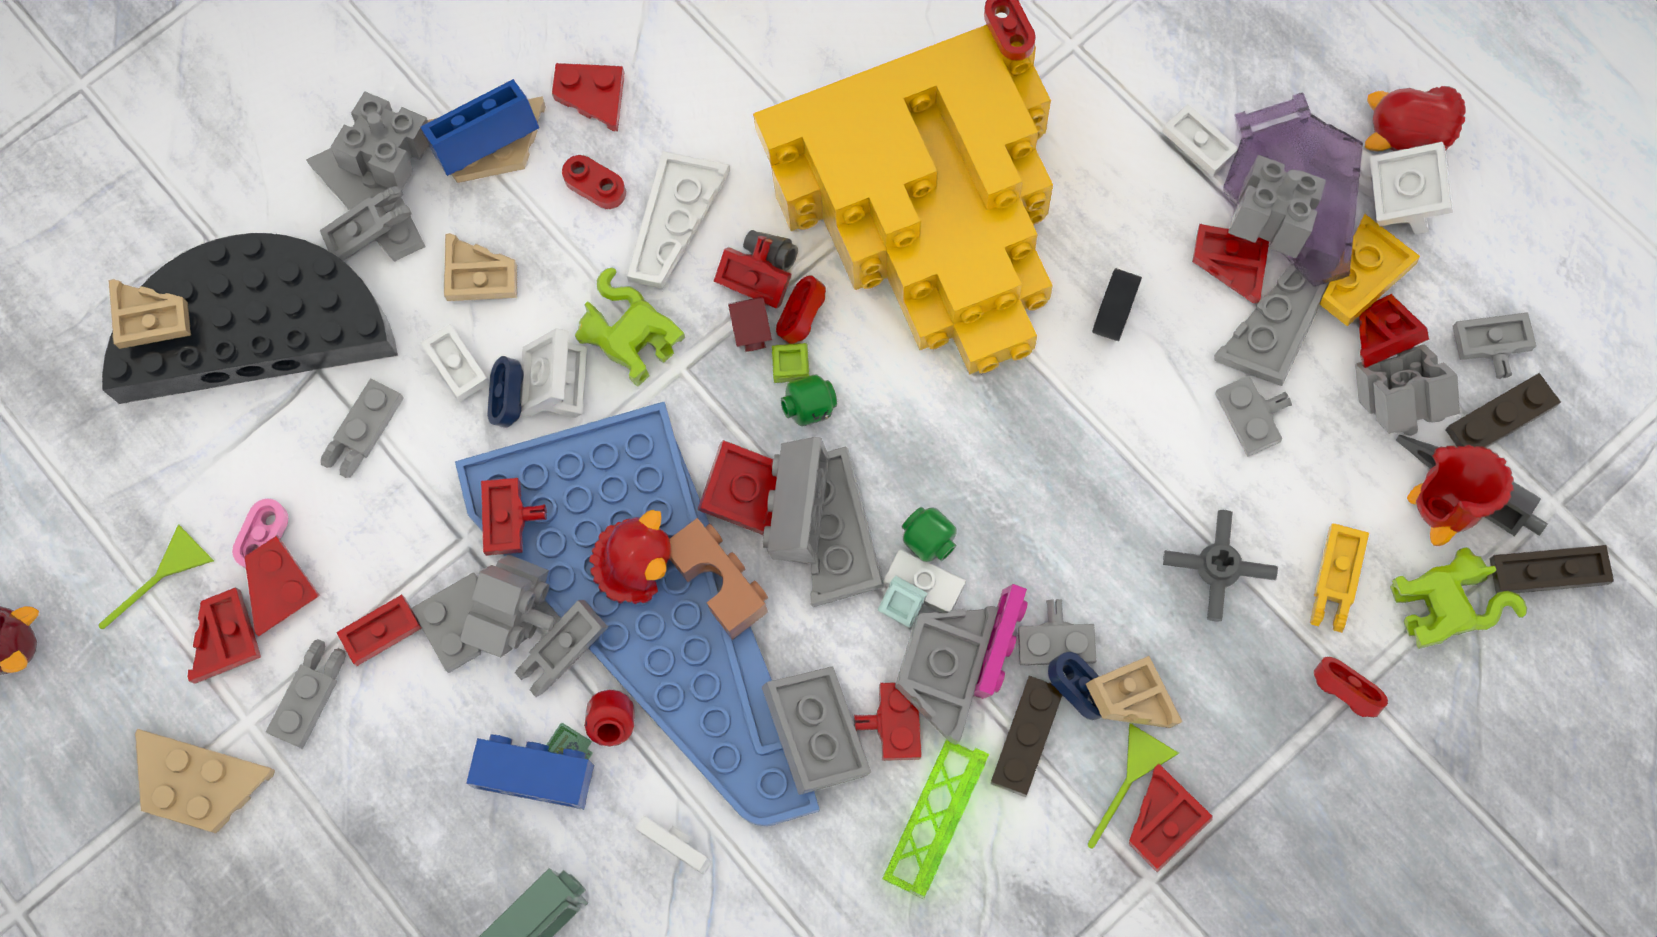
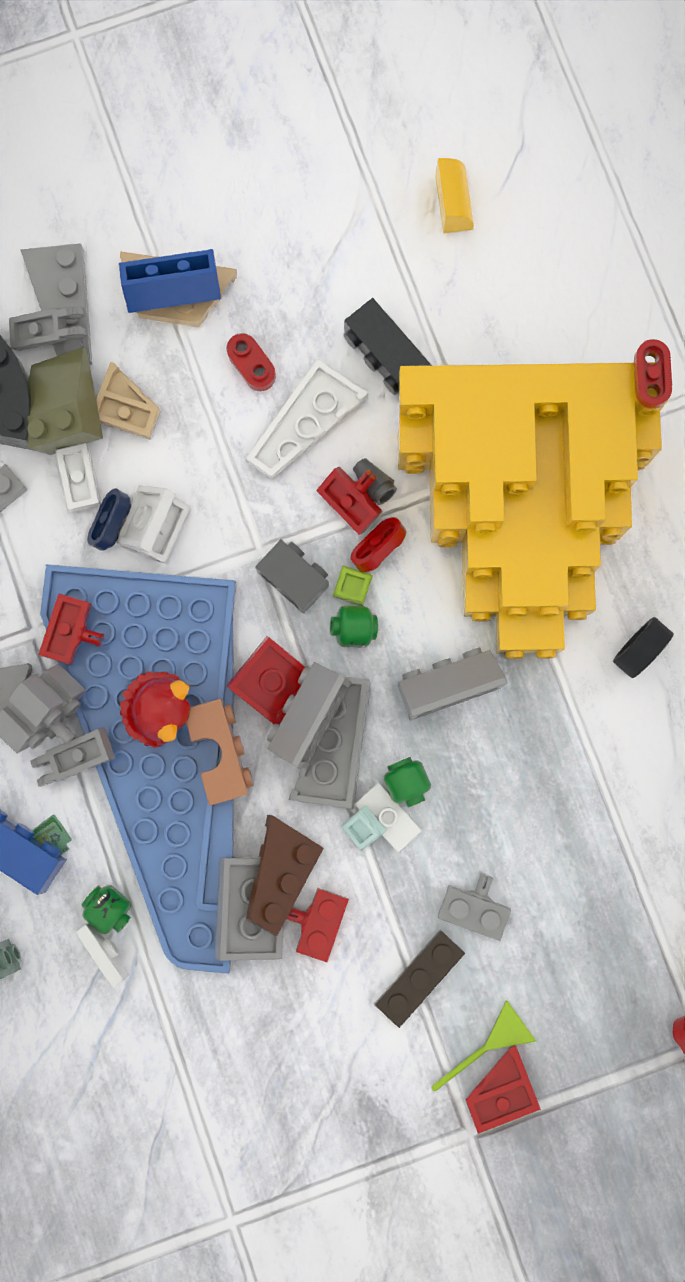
camera: 20 degrees right, 10 degrees up
(380, 141) = (83, 260): light grey brick -> none
(411, 292) = (62, 403): none -> olive slope
(590, 90) = (279, 279): red wing -> none
(609, 718) = (90, 832): red head -> none
(632, 332) = (232, 509): lime animal -> none
(659, 794) = (106, 909): none -> green head
(721, 112) = (381, 343): none -> black brick
(723, 374) = (292, 575): none -> dark grey brick
(750, 323) = (331, 540): dark red brick -> none
(835, 681) = (281, 875): none -> reddish brown wing
(934, 418) = (450, 683): none -> light grey slope
(945, 665) = (376, 896): light grey wing -> none
(948, 825) = (328, 1026): clear neon green fence -> none
(1001, 642) = (427, 894): dark pink plate -> none
(1073, 685) = (478, 956): dark blue plate -> none
(1134, 695) = (519, 983): tan wing -> none
(1208, 570) = (647, 908): dark grey bar -> none

